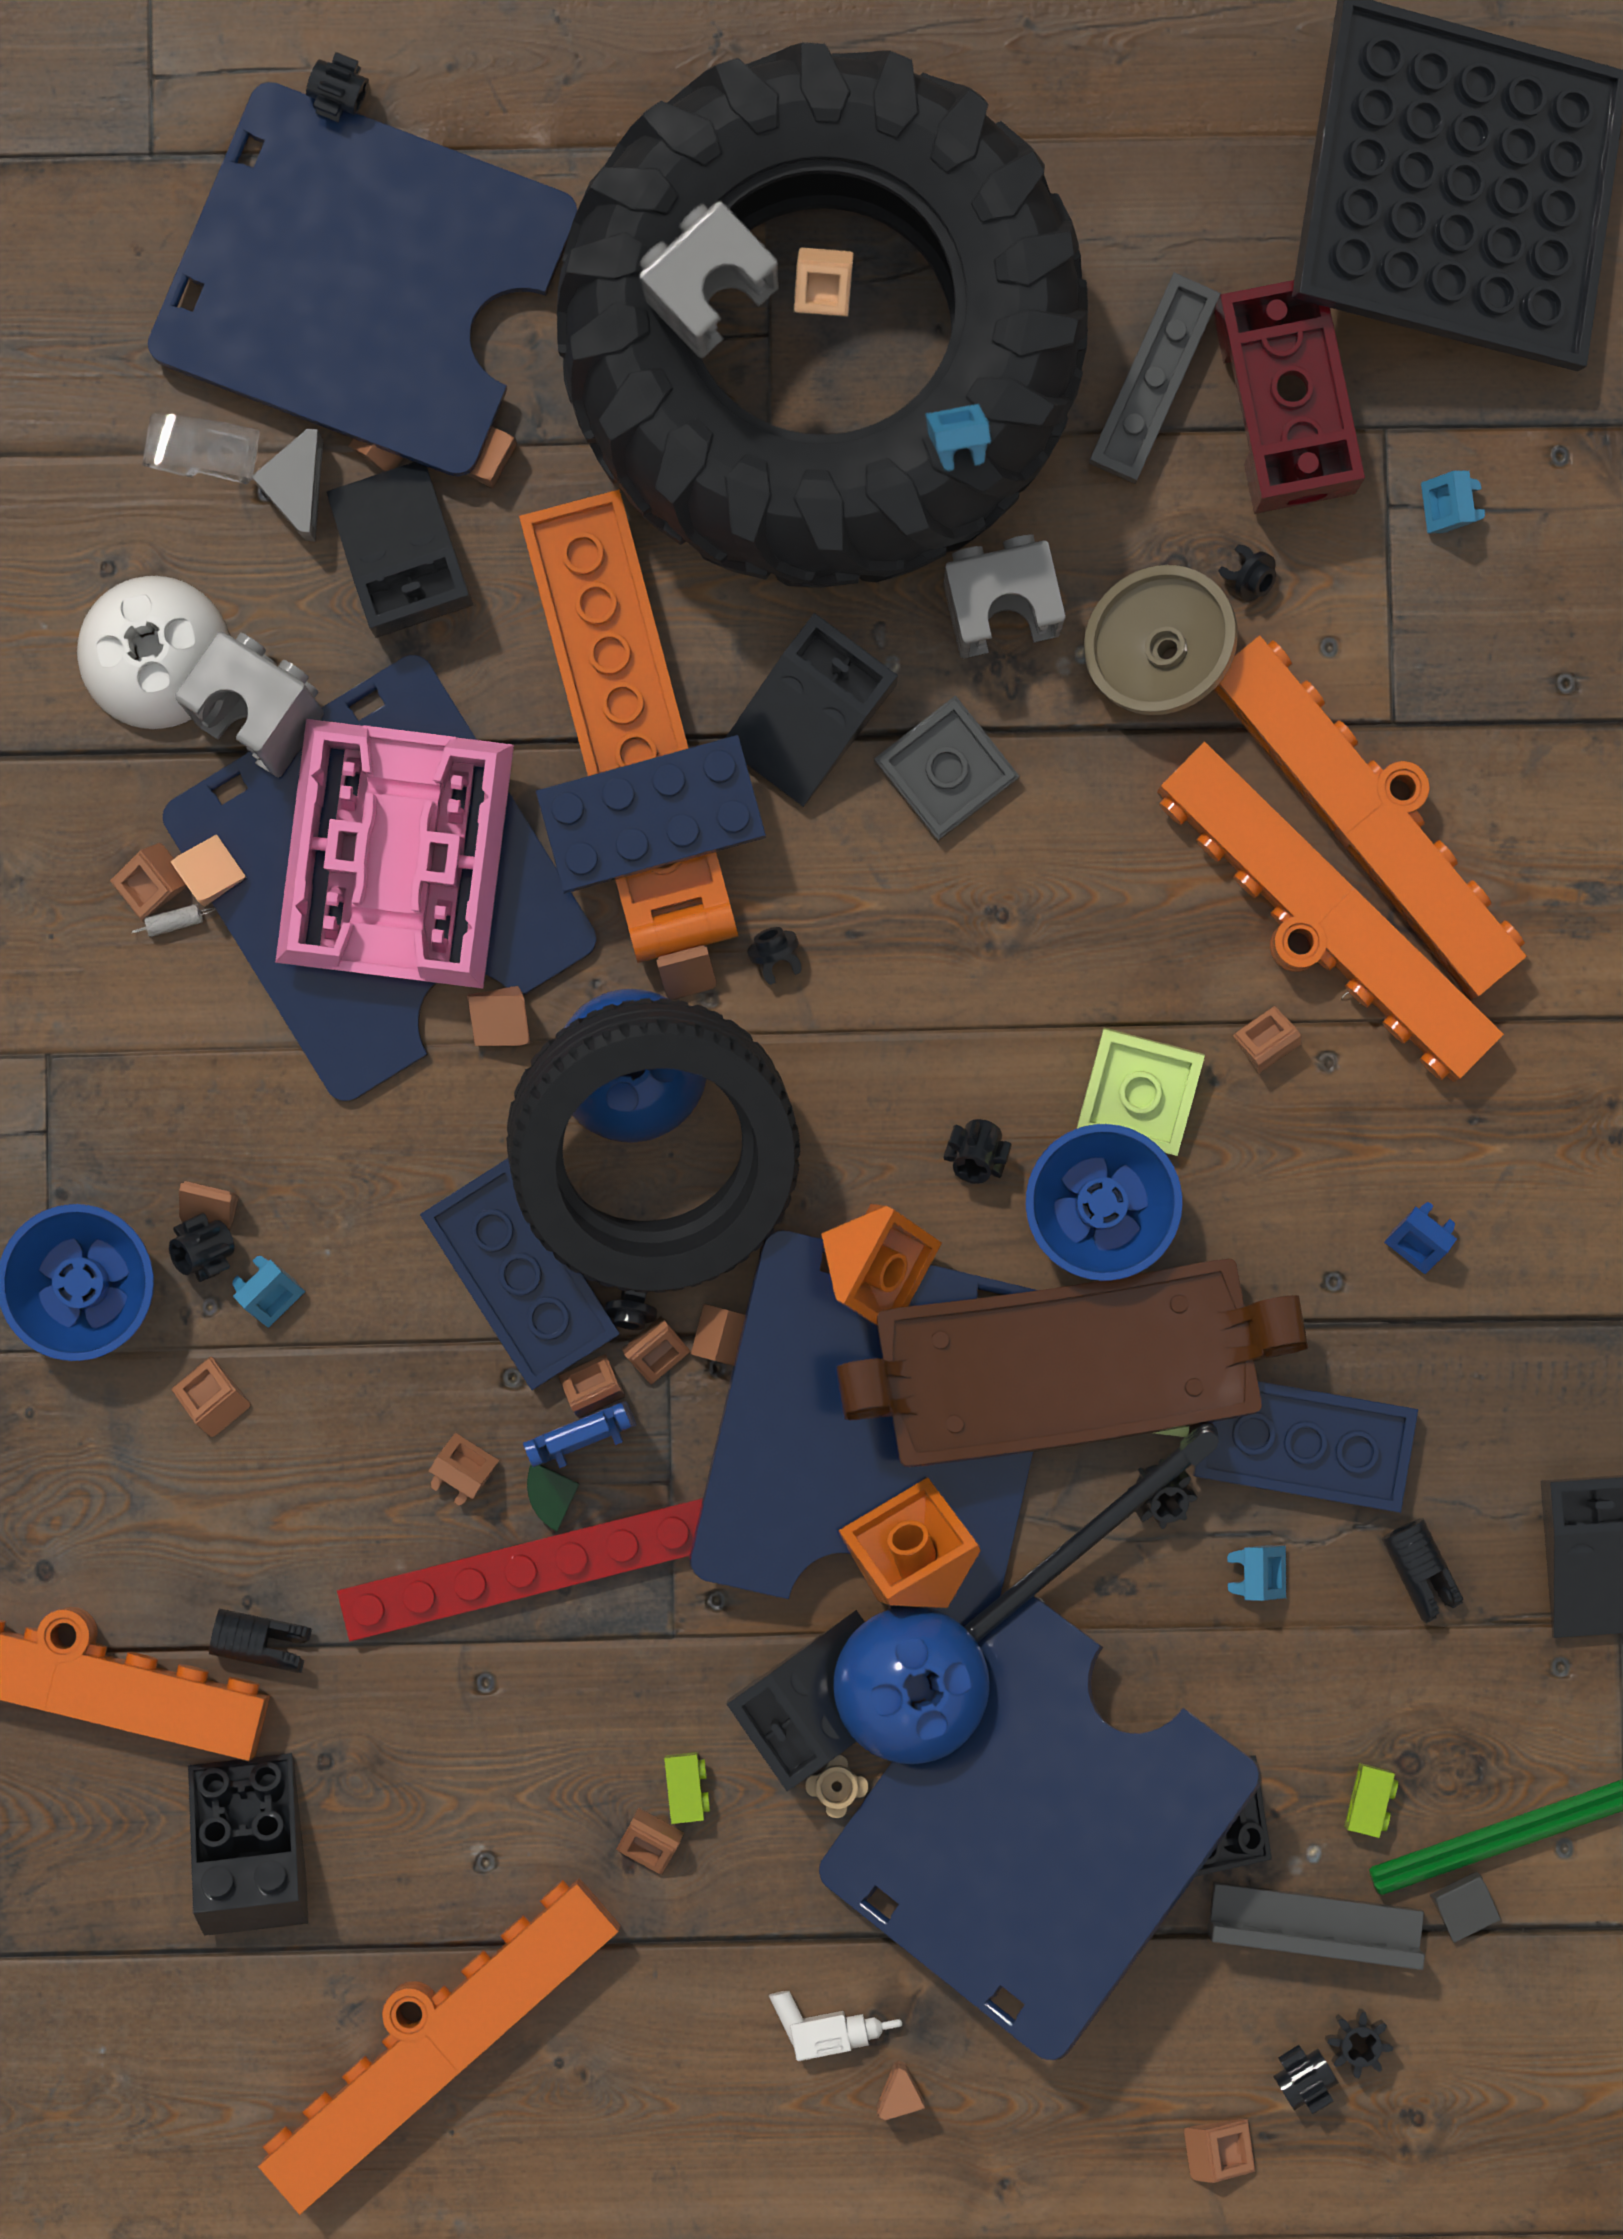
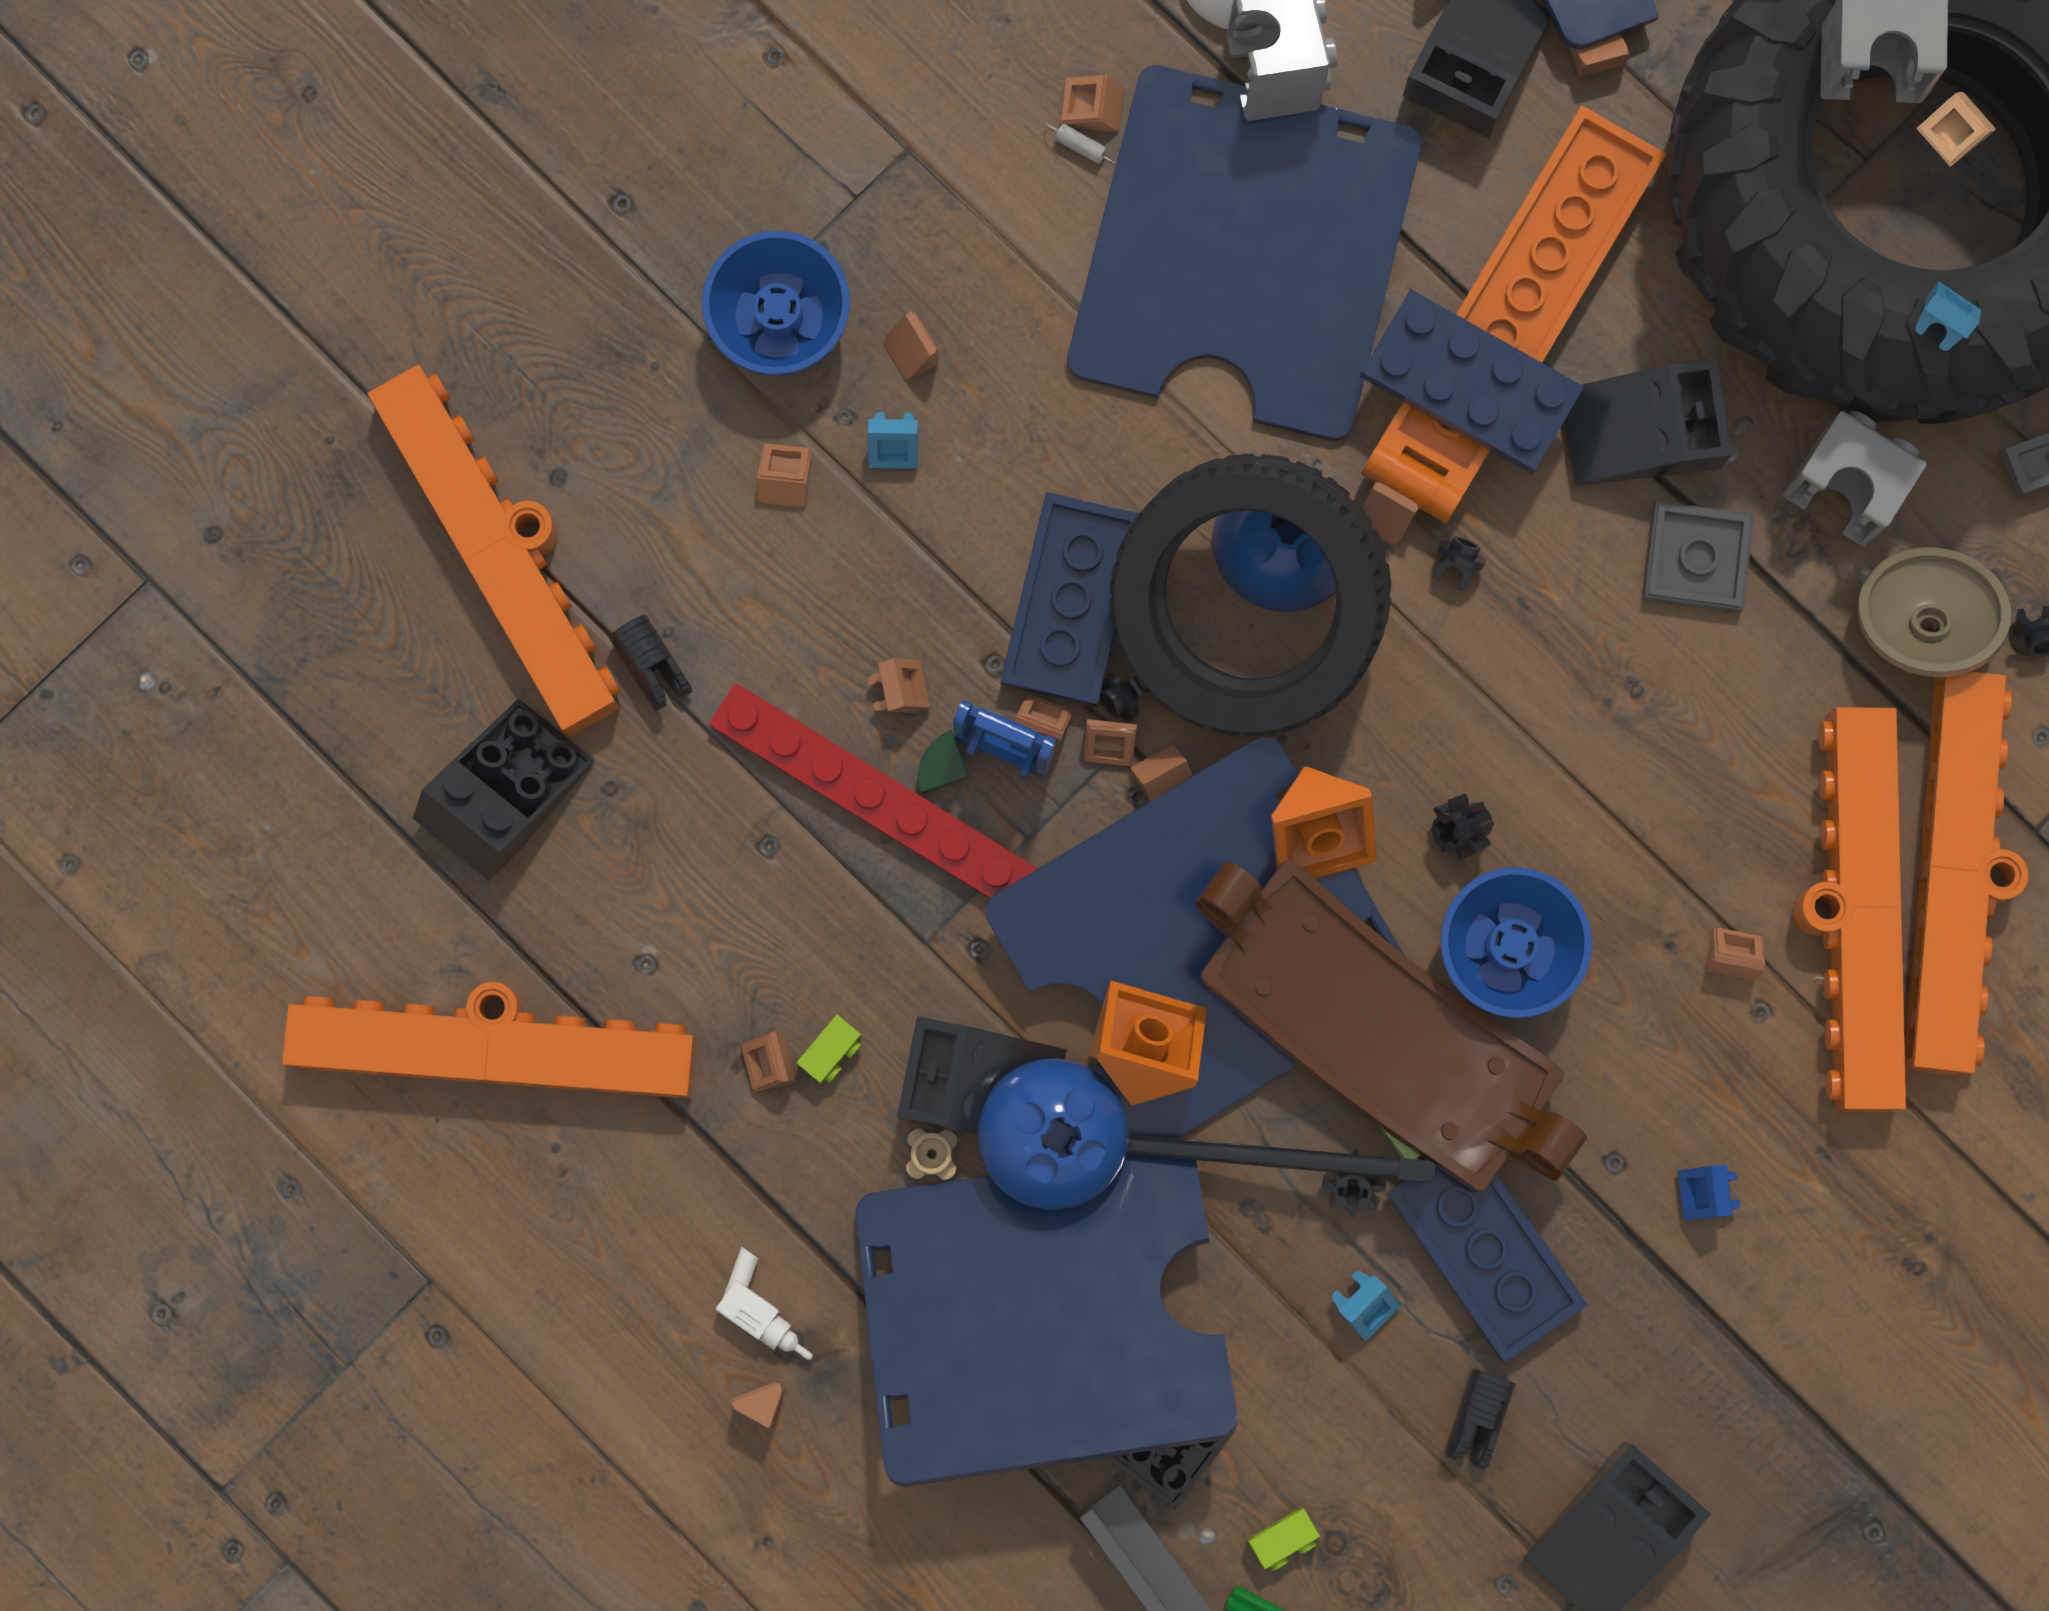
camera: 40 degrees right, 5 degrees down
(201, 1247) = (880, 368): black gear -> none
(208, 870) = (1138, 132): light nougat slope -> none
(395, 853) = (1274, 240): bright pink piece -> none
(499, 1017) = (1230, 417): nougat slope -> none
(1142, 1087) = (1619, 897): yellowish green plate -> none

